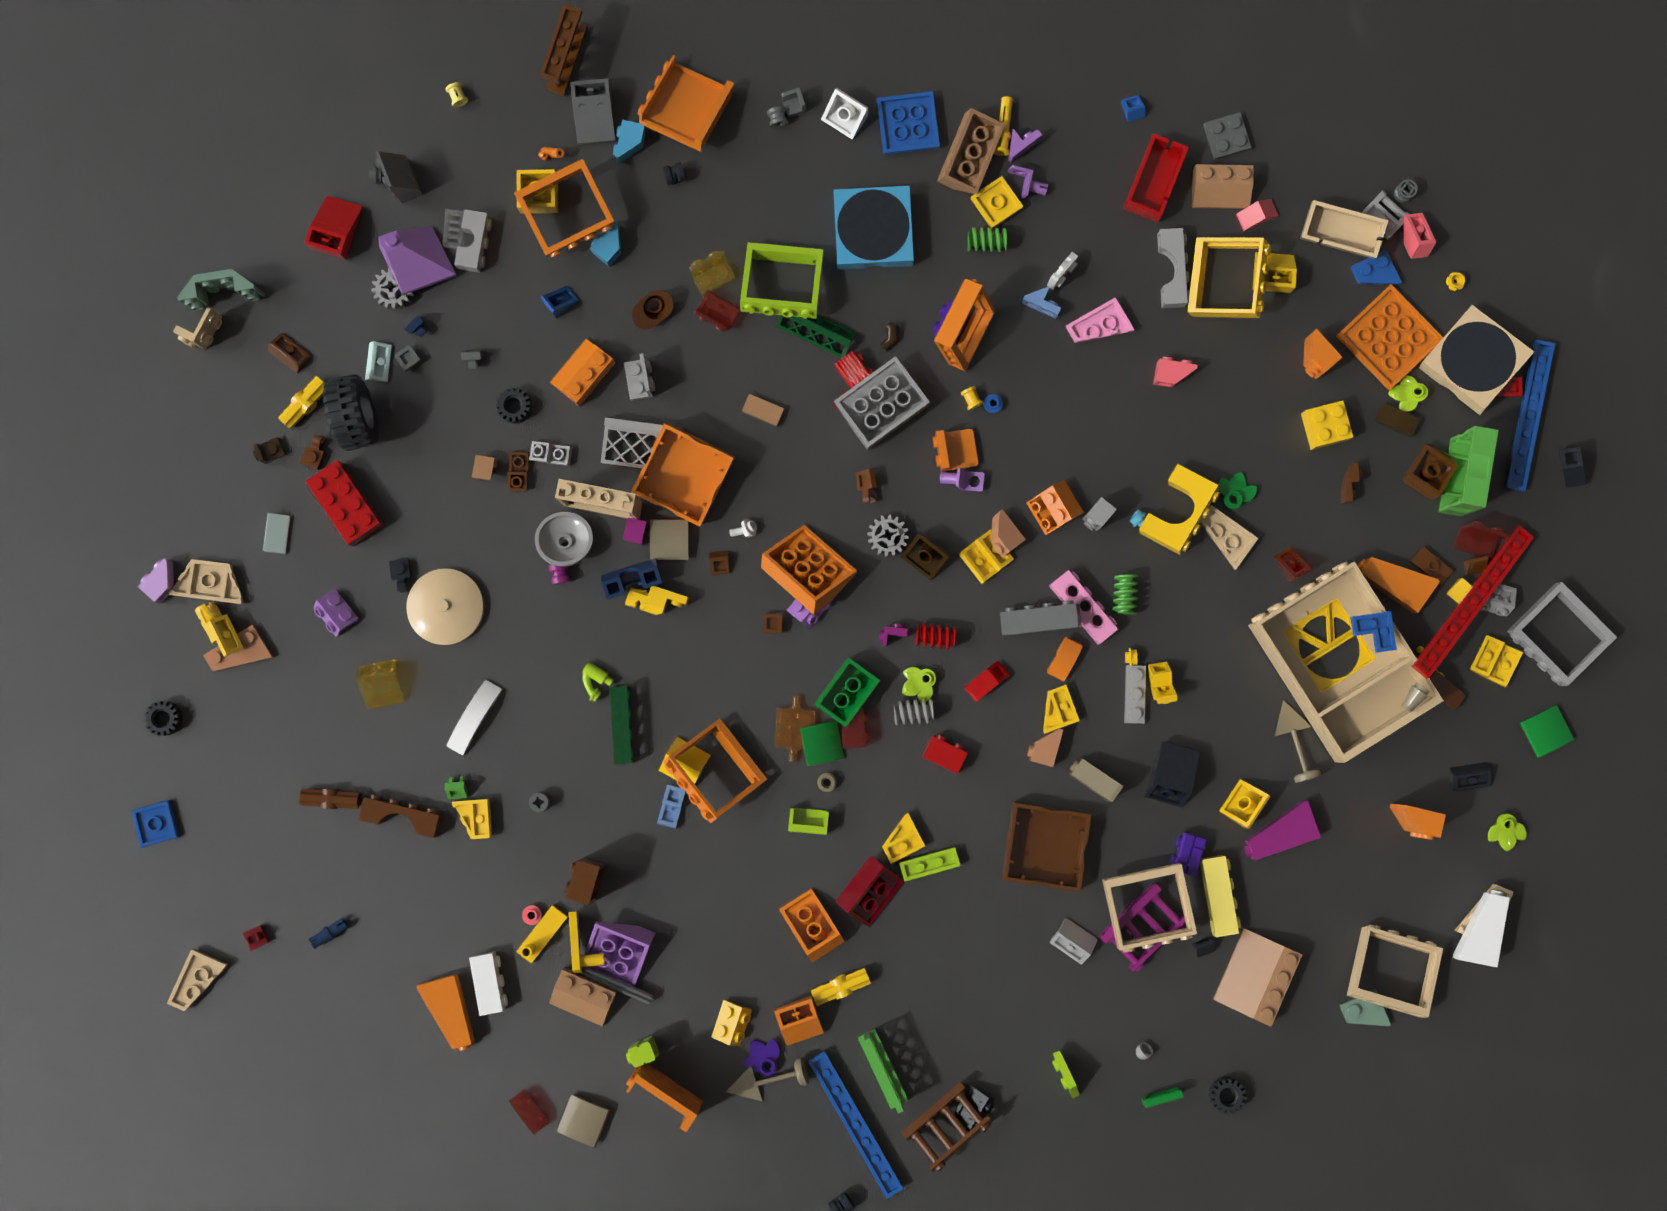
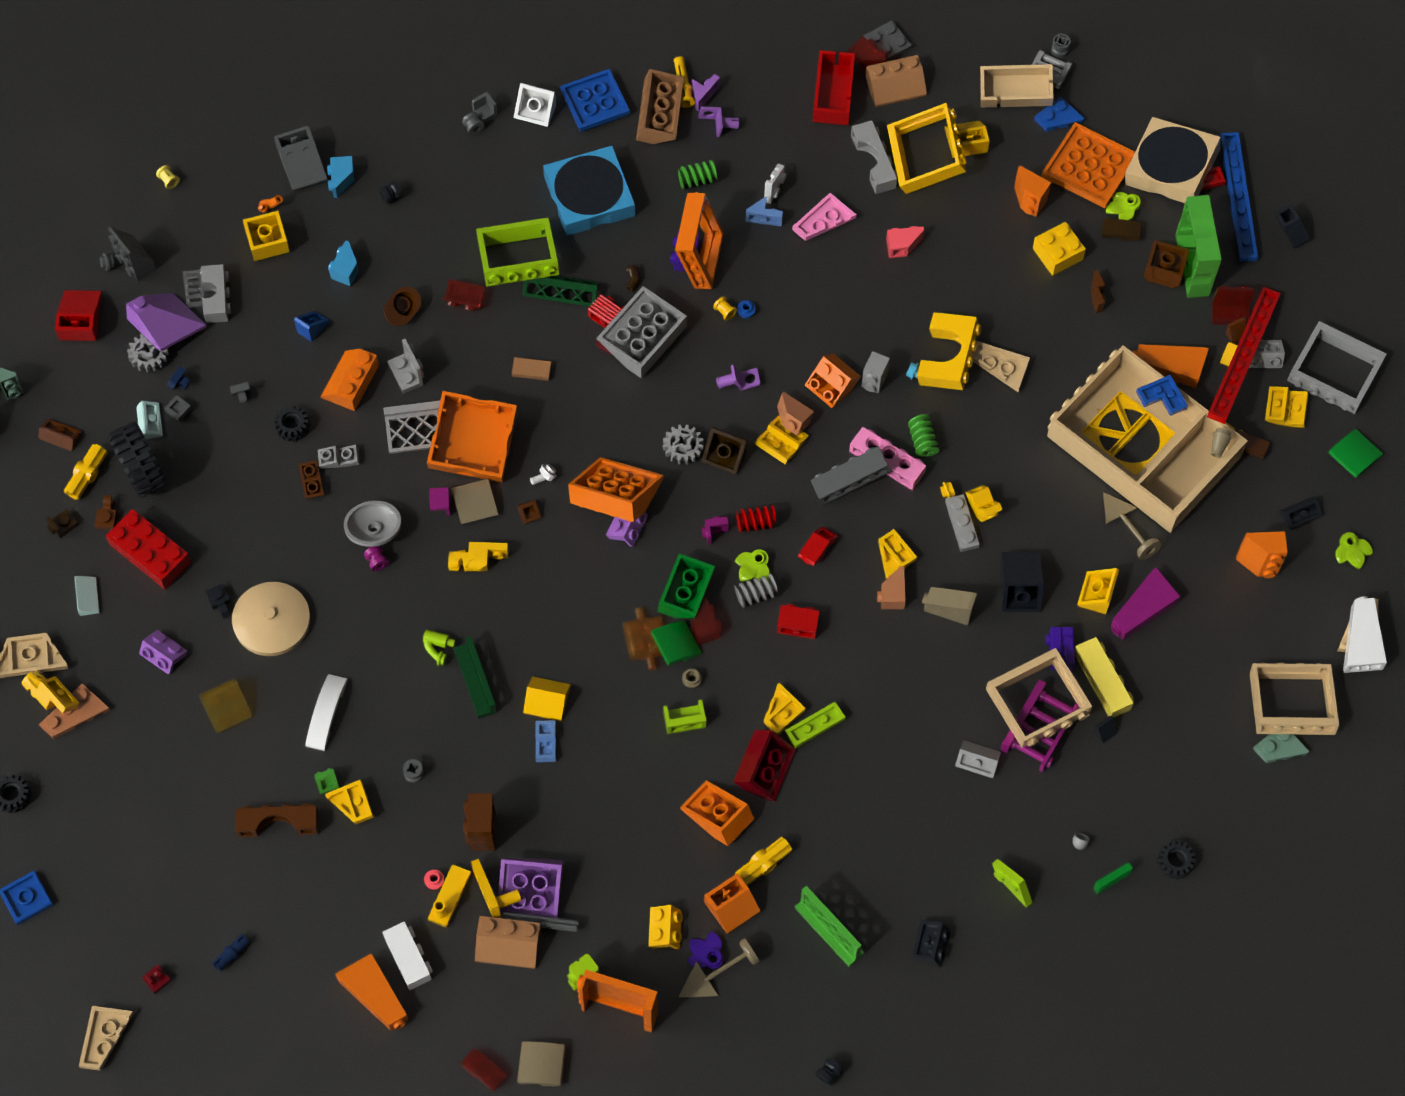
camera: 20 degrees left, 20 degrees down
(330, 798) = (200, 823): reddish brown piece -> none
(483, 467) = (277, 482): medium nougat panel -> none
(550, 181) = (279, 217): orange window -> none
(563, 50) = (260, 112): reddish brown fence -> none
(599, 499) = (397, 487): tan window -> none
(618, 581) = (448, 542): dark blue arch -> none
(685, 105) = (384, 132): orange panel -> none
(711, 272) = (448, 262): clear yellow bracket -> none
(738, 755) = (591, 670): orange window -> none
(772, 623) = (596, 549): reddish brown plate -> none
(855, 1124) = (819, 990): blue plate -> none
(865, 483) = (647, 403): reddish brown plate -> none
(928, 1119) = (900, 946): reddish brown fence -> none
(955, 449) = (722, 355): orange bracket -> none
(996, 202) = (696, 143): yellow plate -> none
(1046, 847) = (922, 677): reddish brown tile -> none
(1065, 658) = (885, 507): orange slope -> none
(1133, 108) = (795, 41): blue slope -> none
(1201, 147) = (867, 53): none -> clear red slope
(1237, 488) = (996, 323): green plate -> none
(1257, 214) = (935, 95): coral slope -> none
(1257, 977) = (1166, 742): slope -> none
(1291, 564) = (1070, 373): clear red slope -> none
(1417, 236) = (1084, 77): coral slope -> none
(1431, 565) = (1194, 339): reddish brown plate -> none
(1459, 278) = (1134, 103): yellow plate -> none

